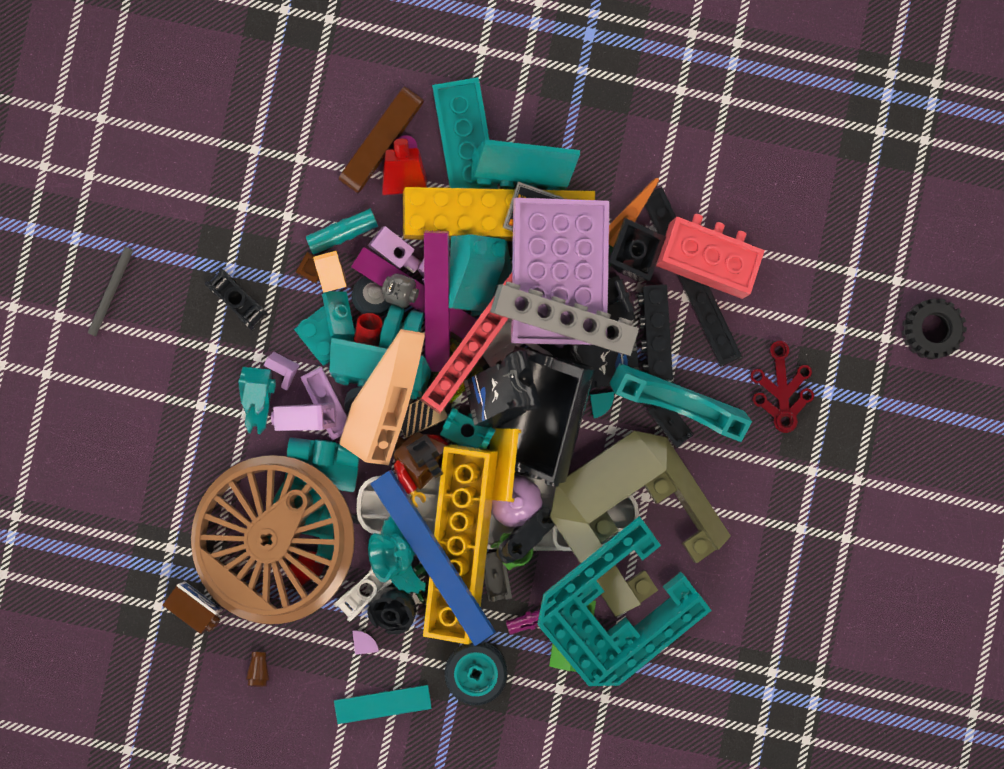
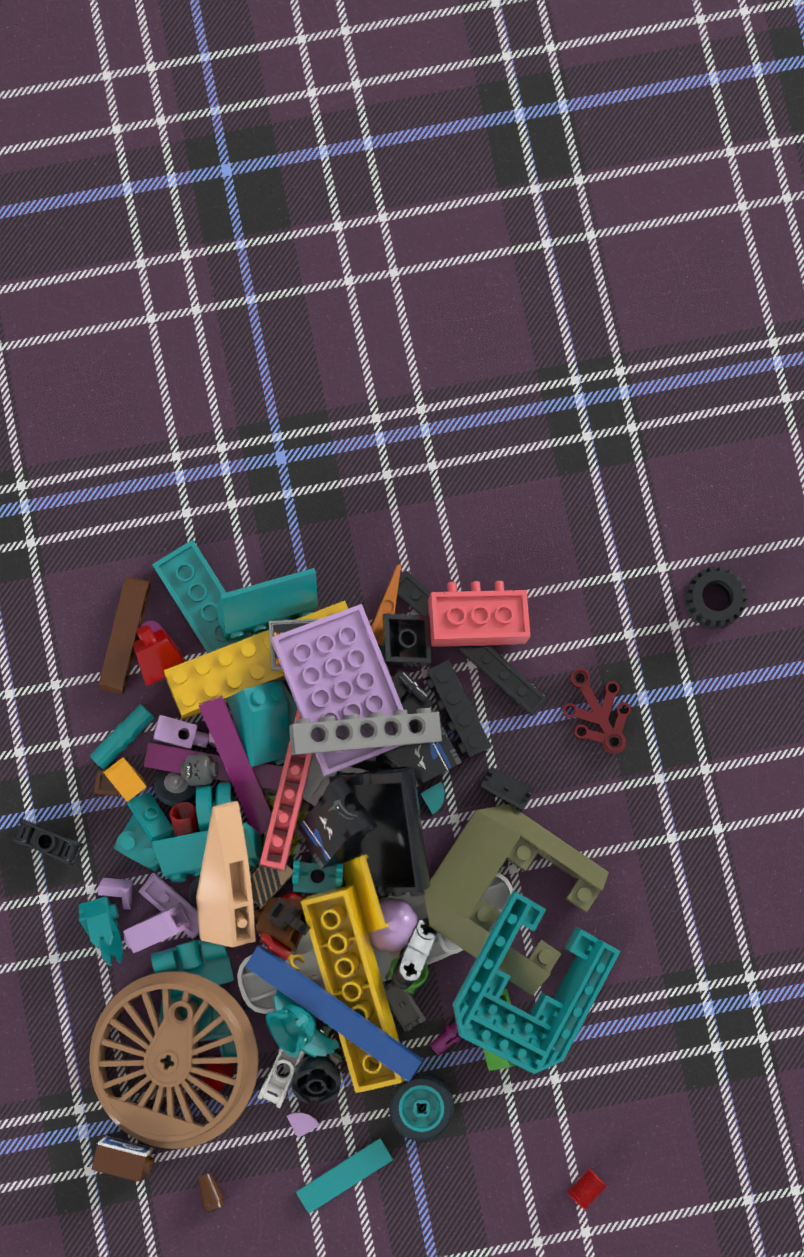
camera: 20 degrees left, 5 degrees down
(652, 390) = (474, 765): teal arch -> none

